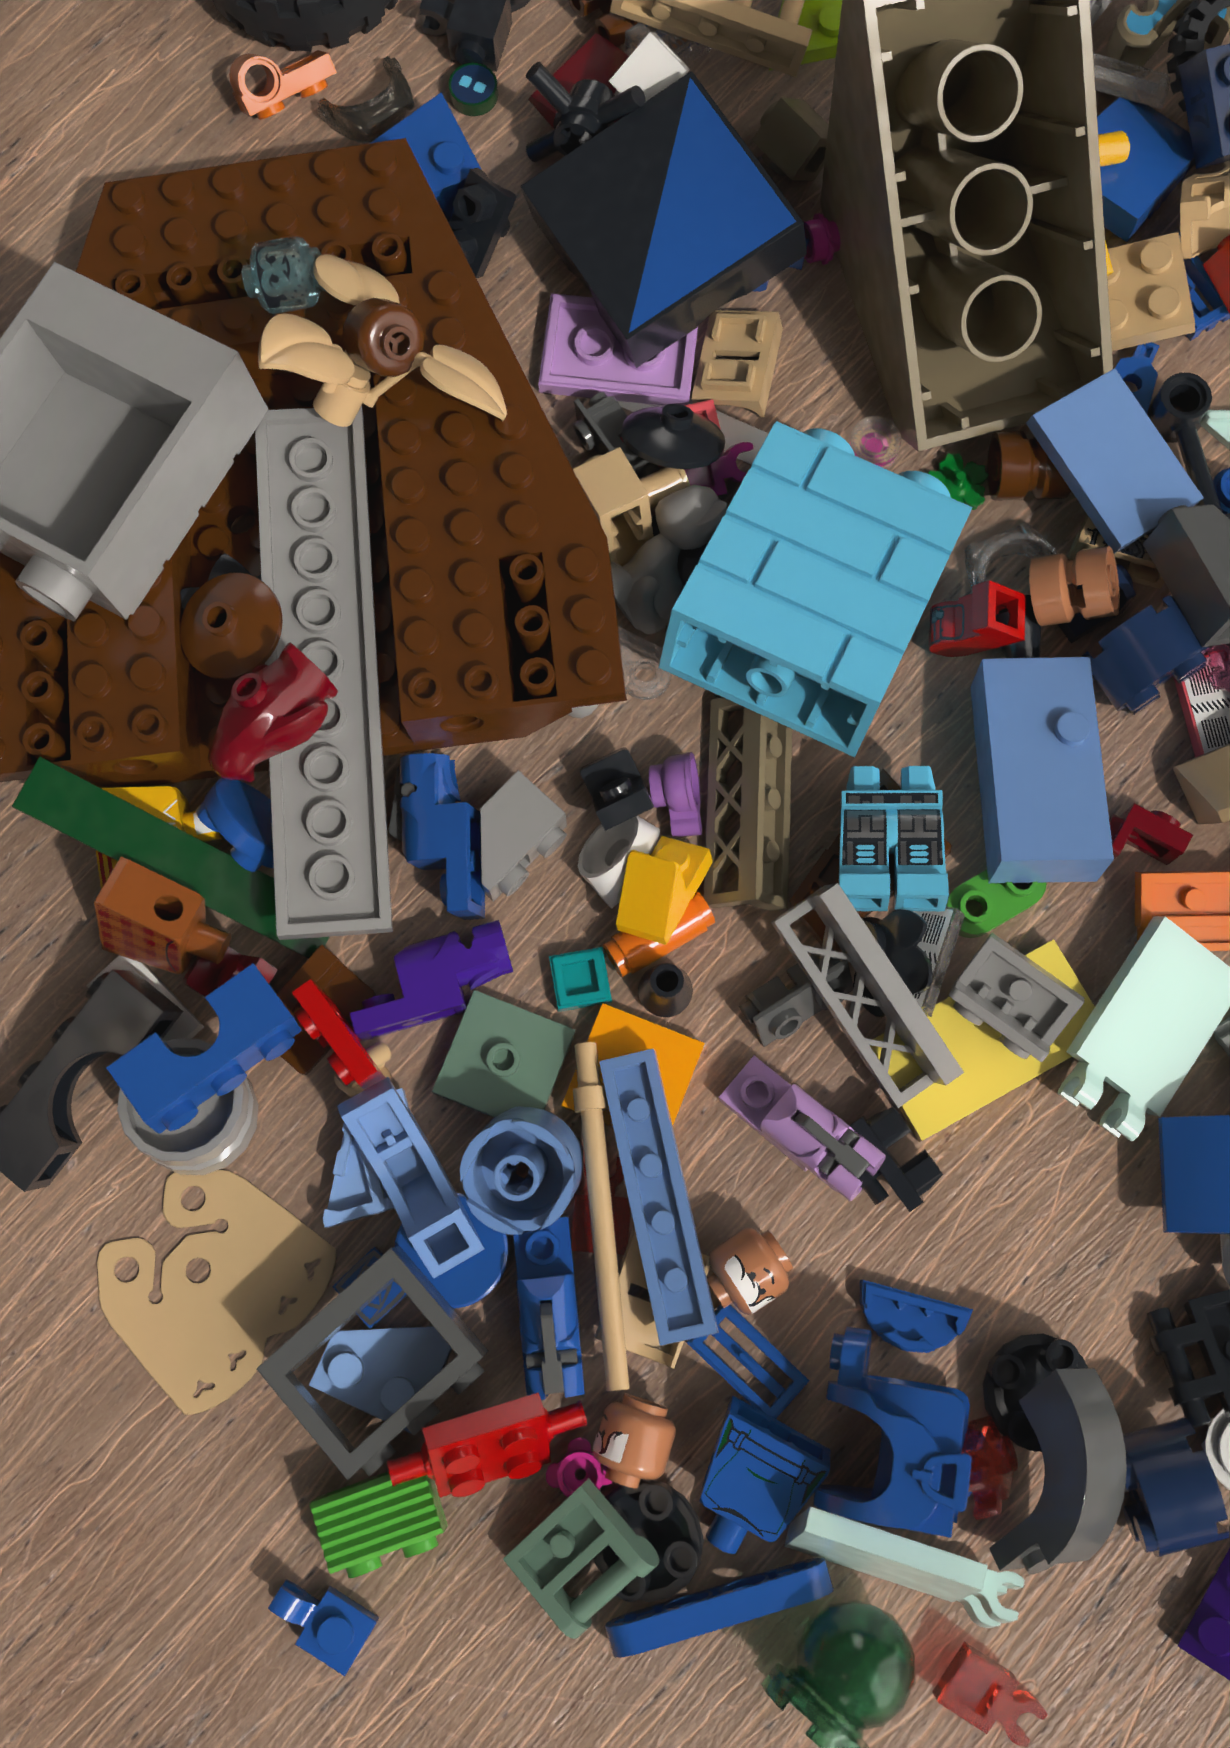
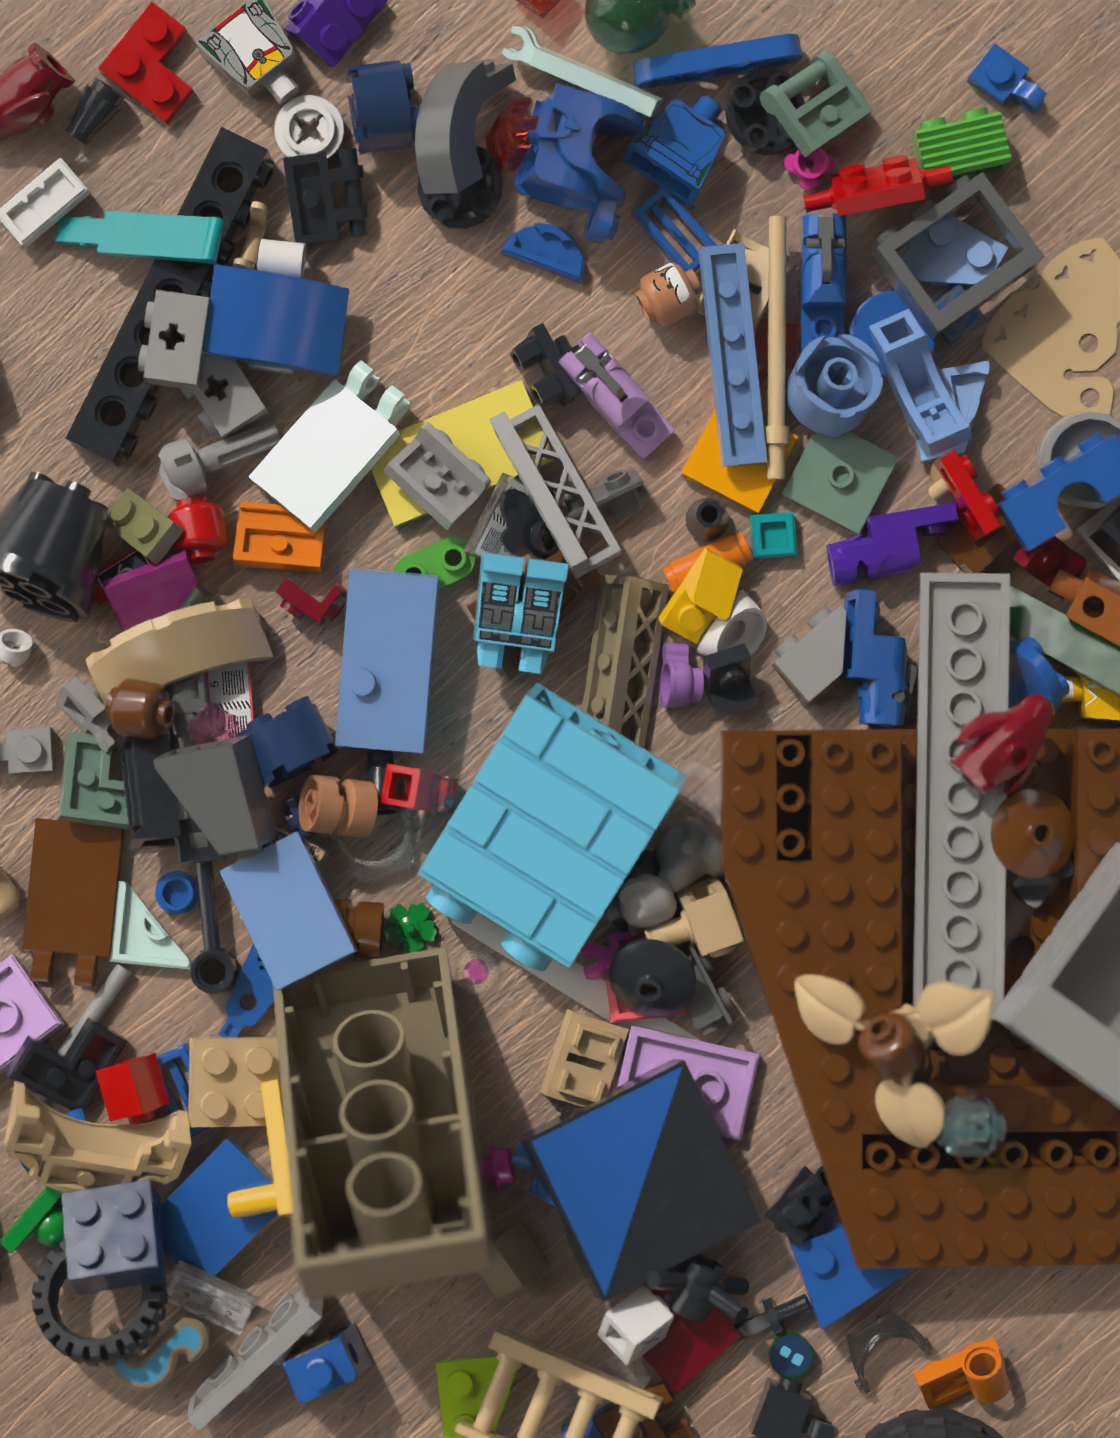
camera: 175 degrees left, 10 degrees up
(496, 122) = (774, 1316): none -> black piece
(634, 1440) = (768, 182): nougat head -> none

